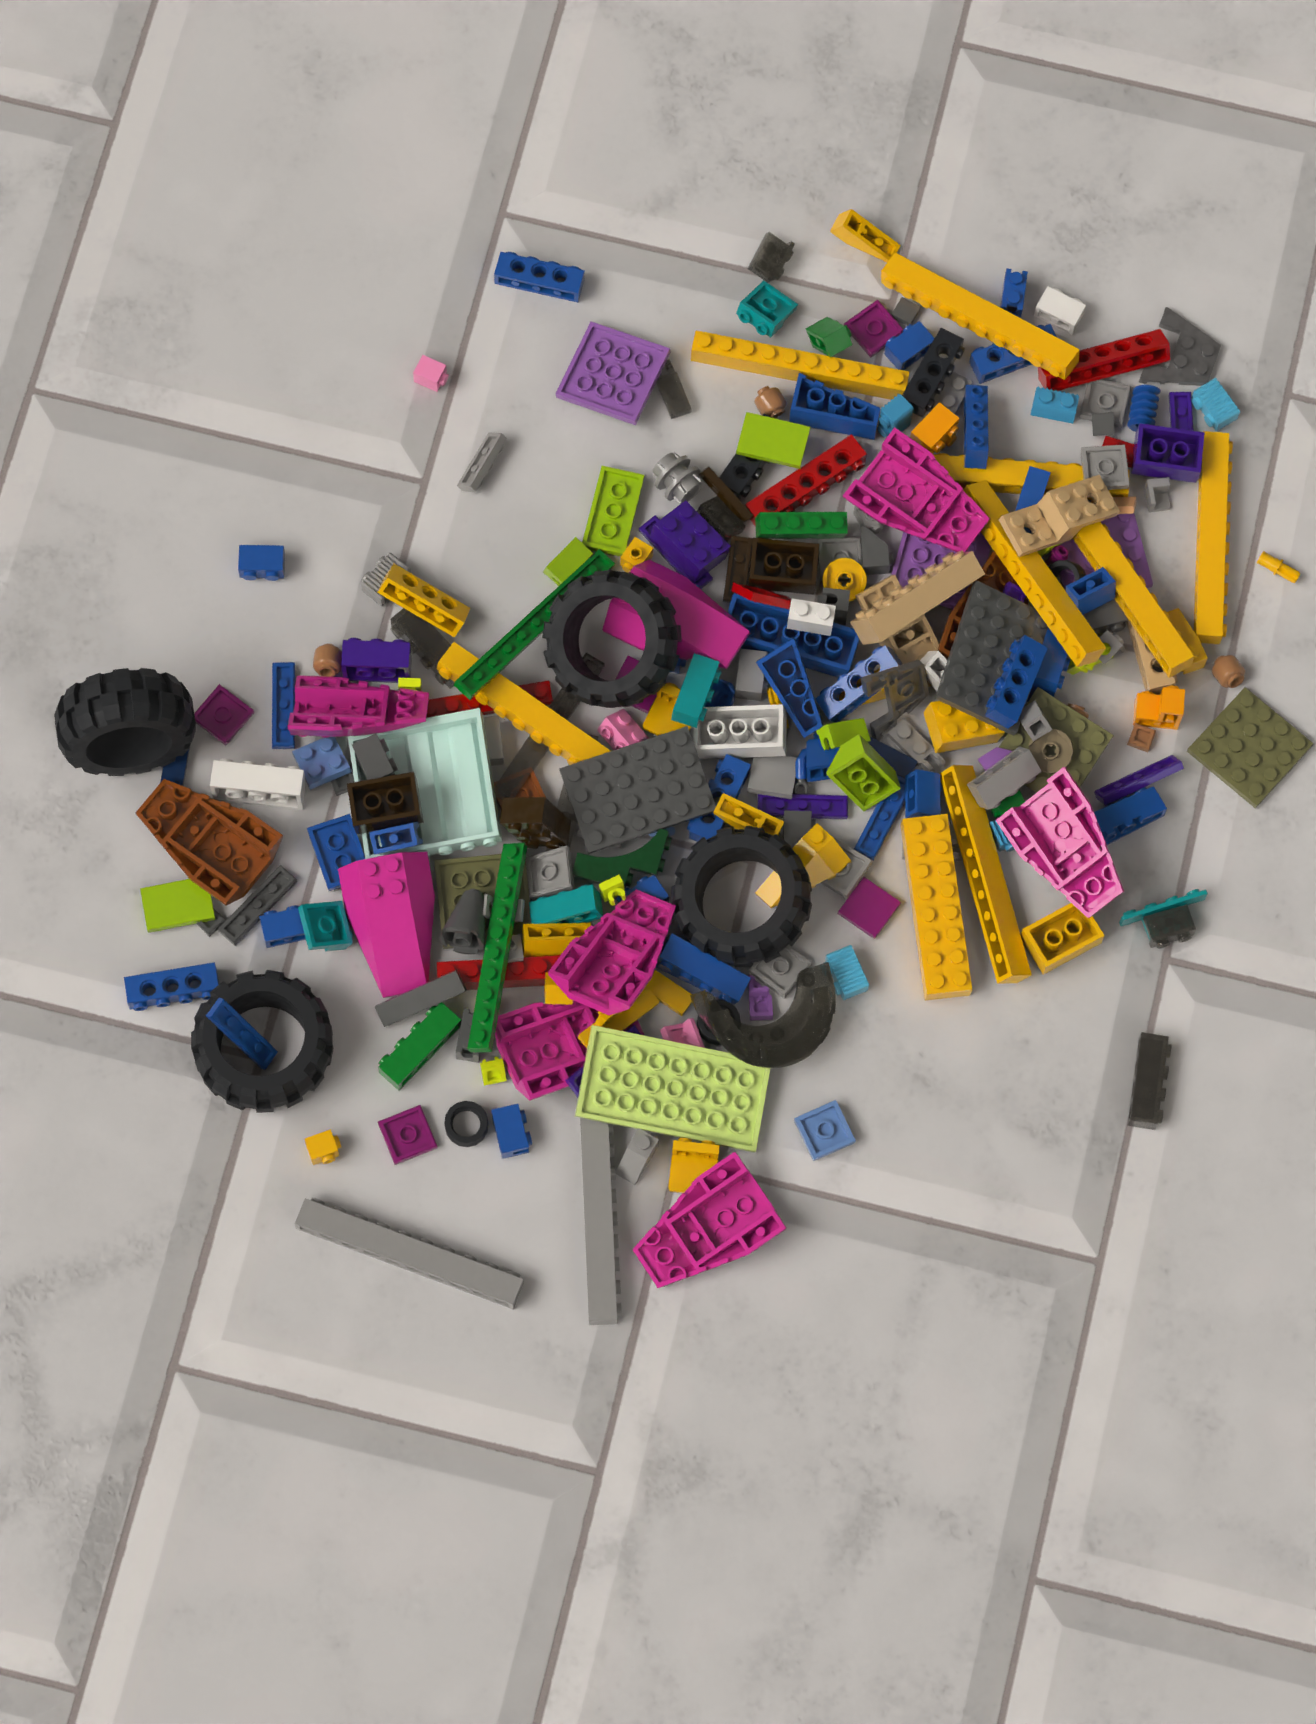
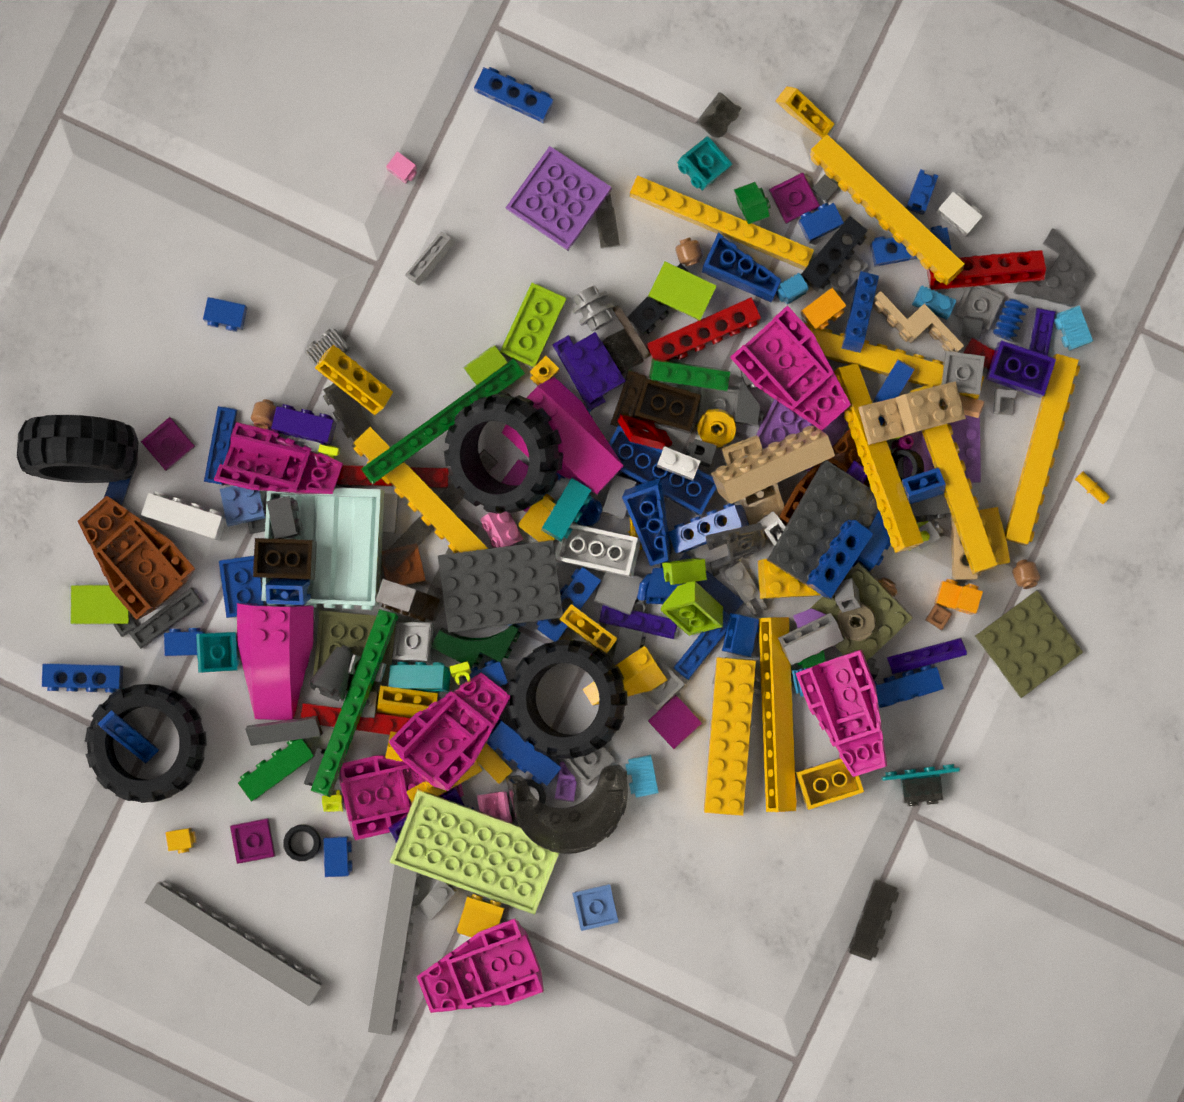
camera: 15 degrees right, 15 degrees up
(1042, 427) = (916, 323): none -> tan bracket

